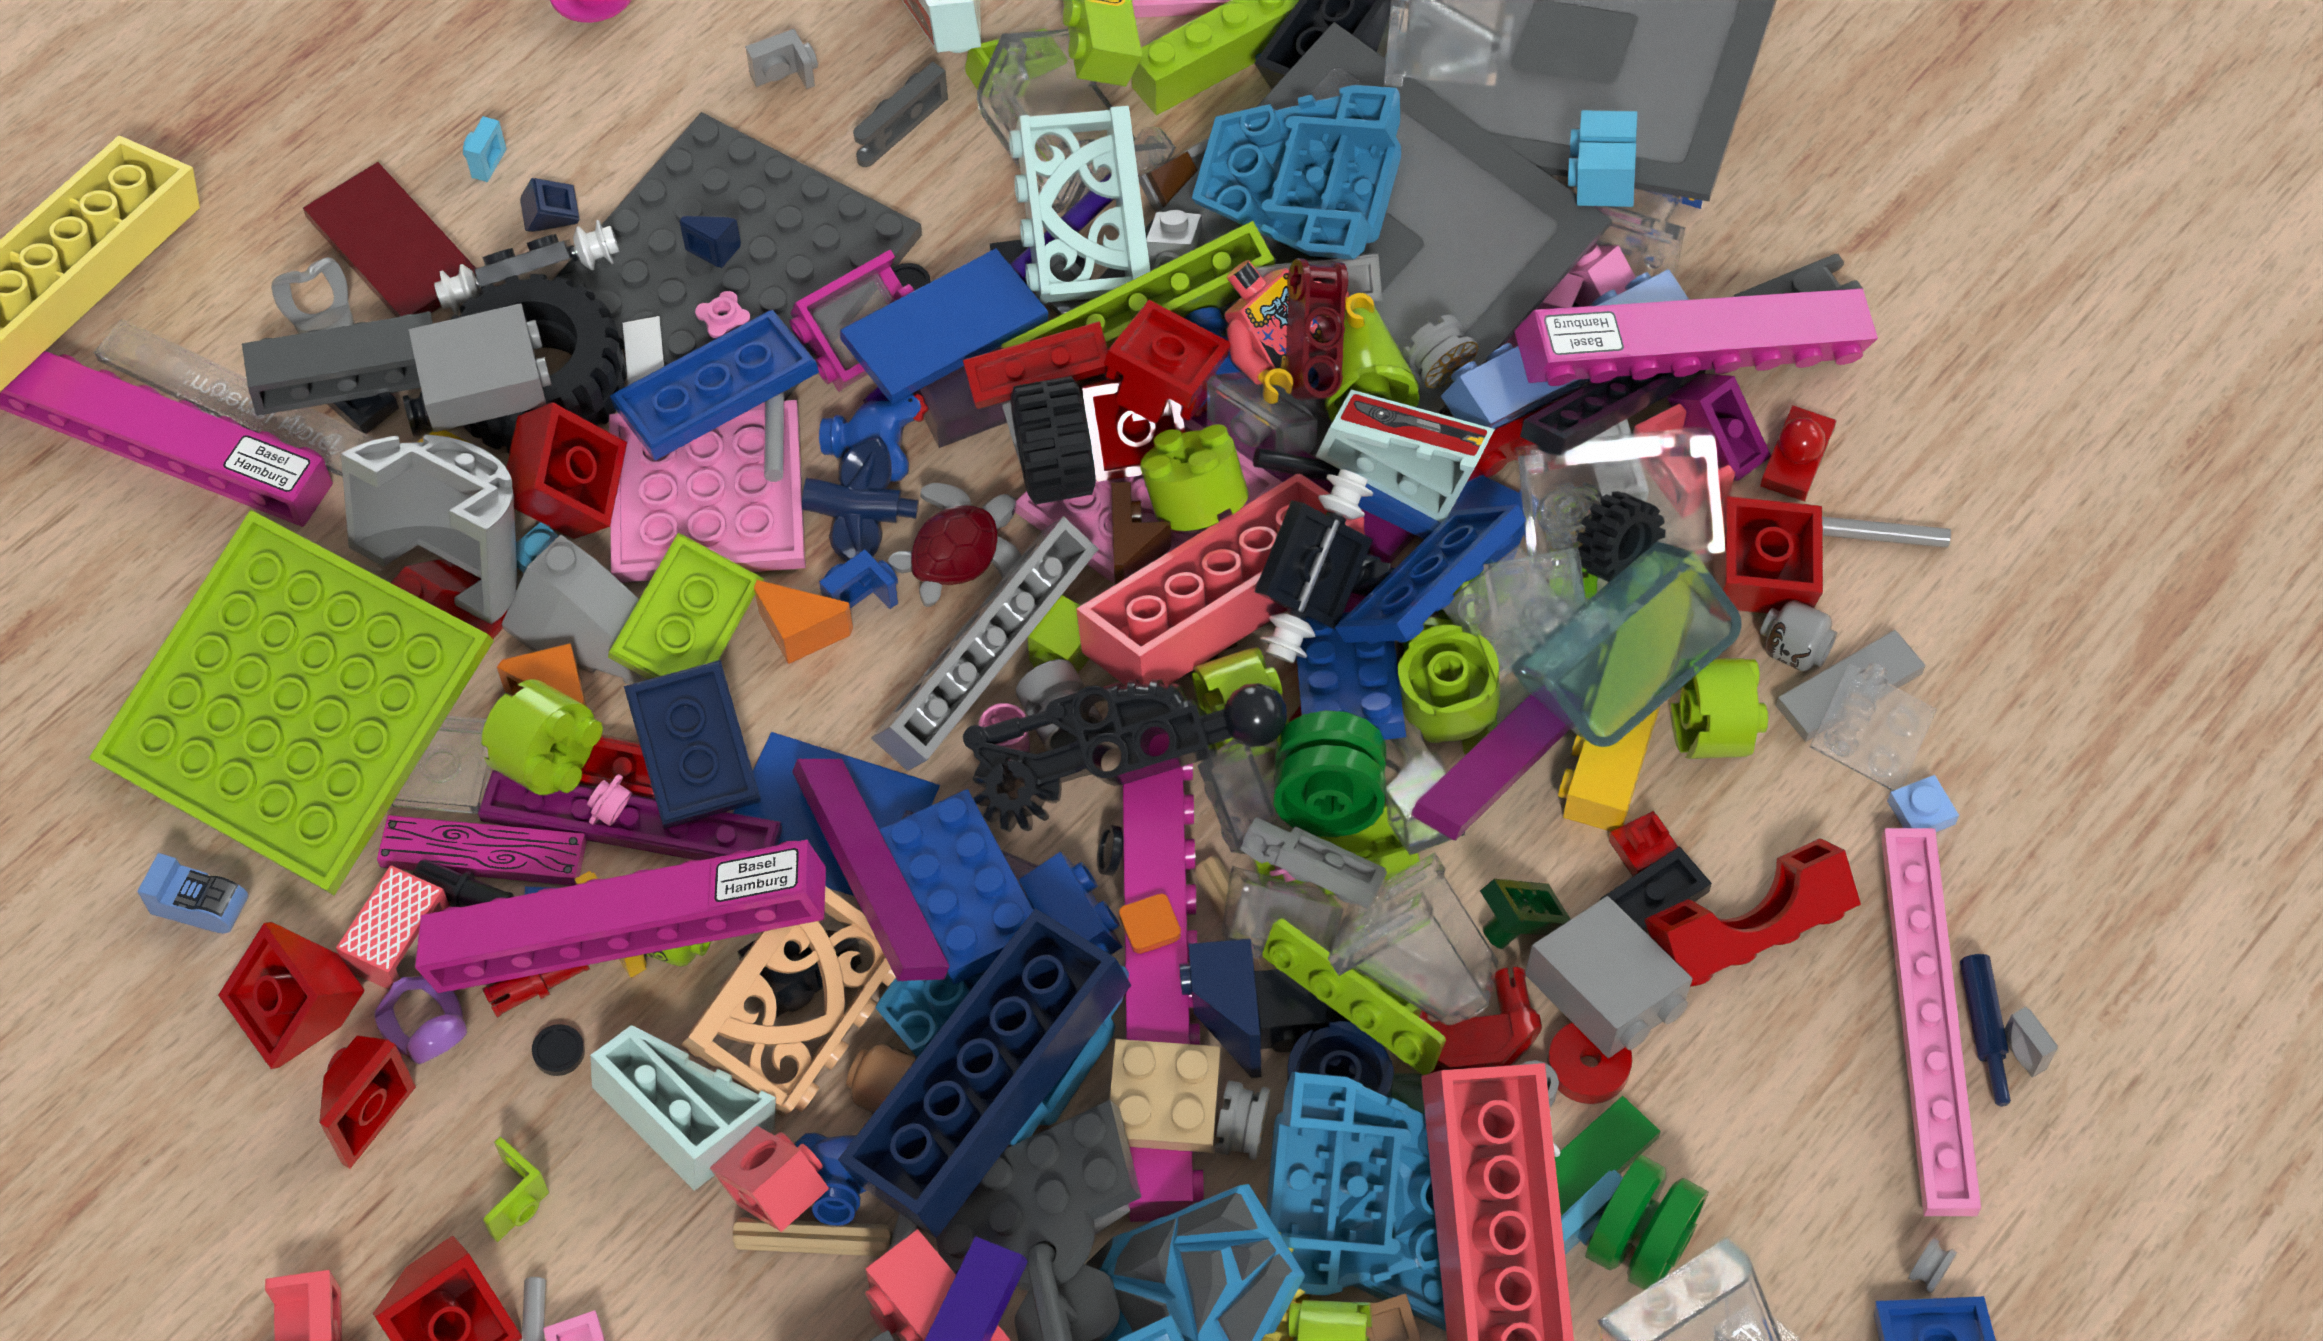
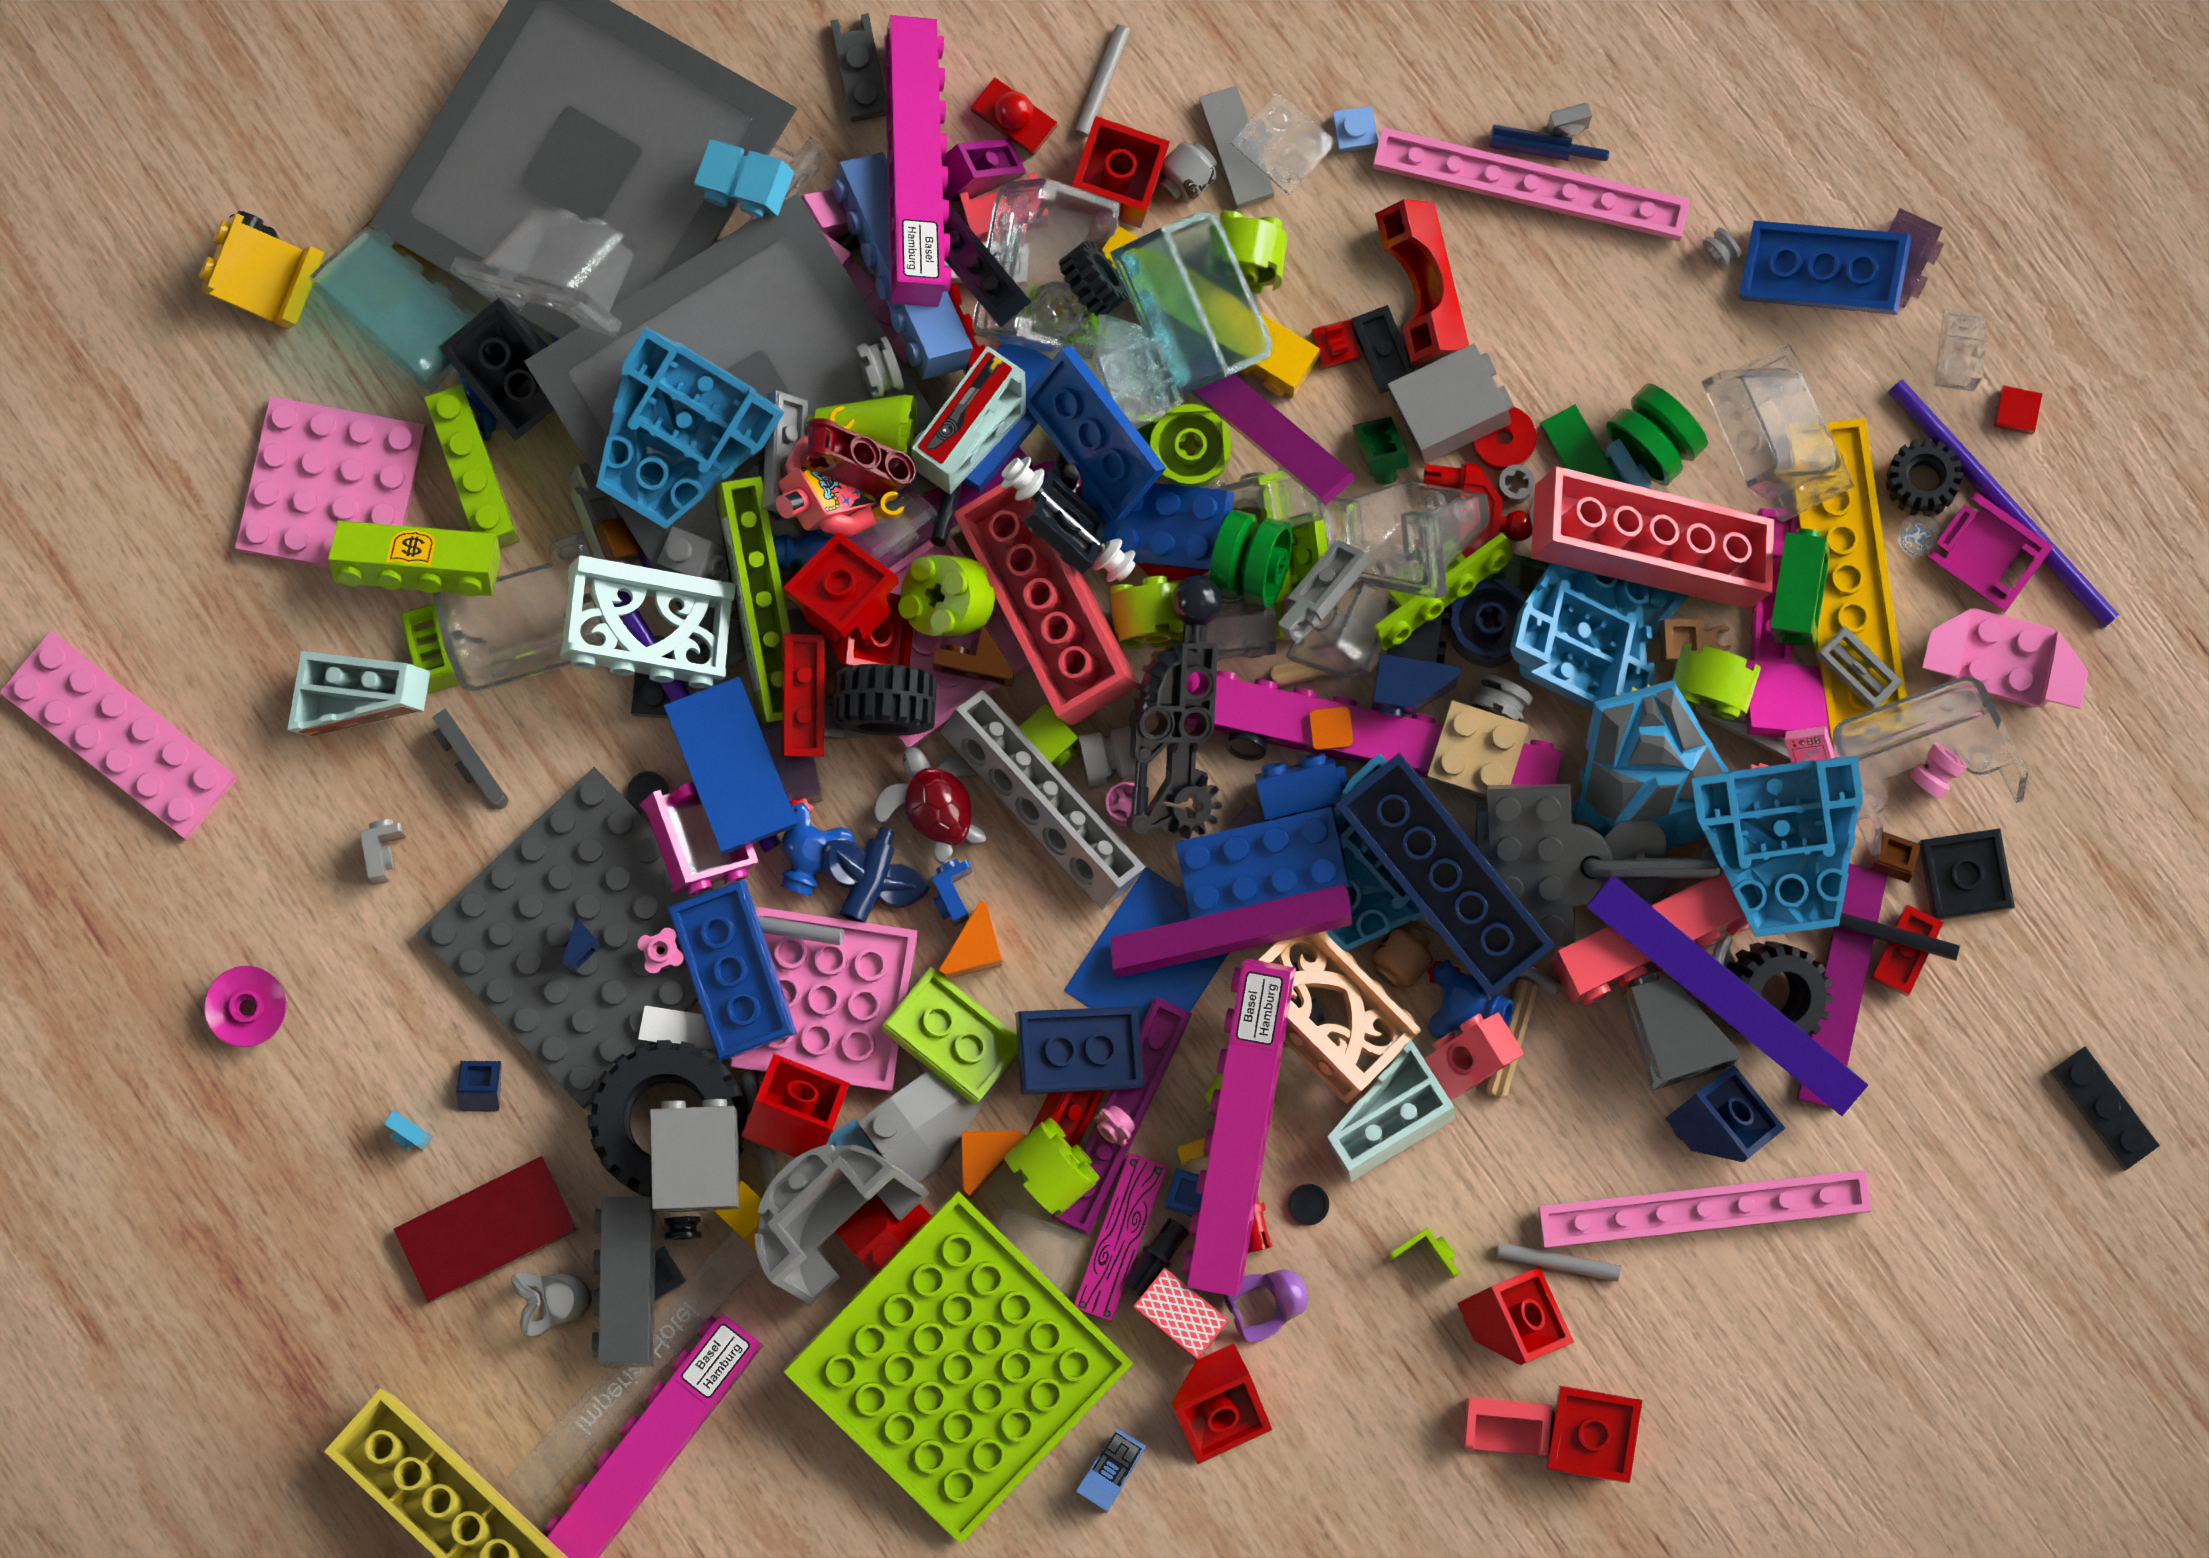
camera: 75 degrees left, 20 degrees up
(362, 1094) = (1321, 1358): red slope -> none
(541, 253) = (561, 1110): plate -> none

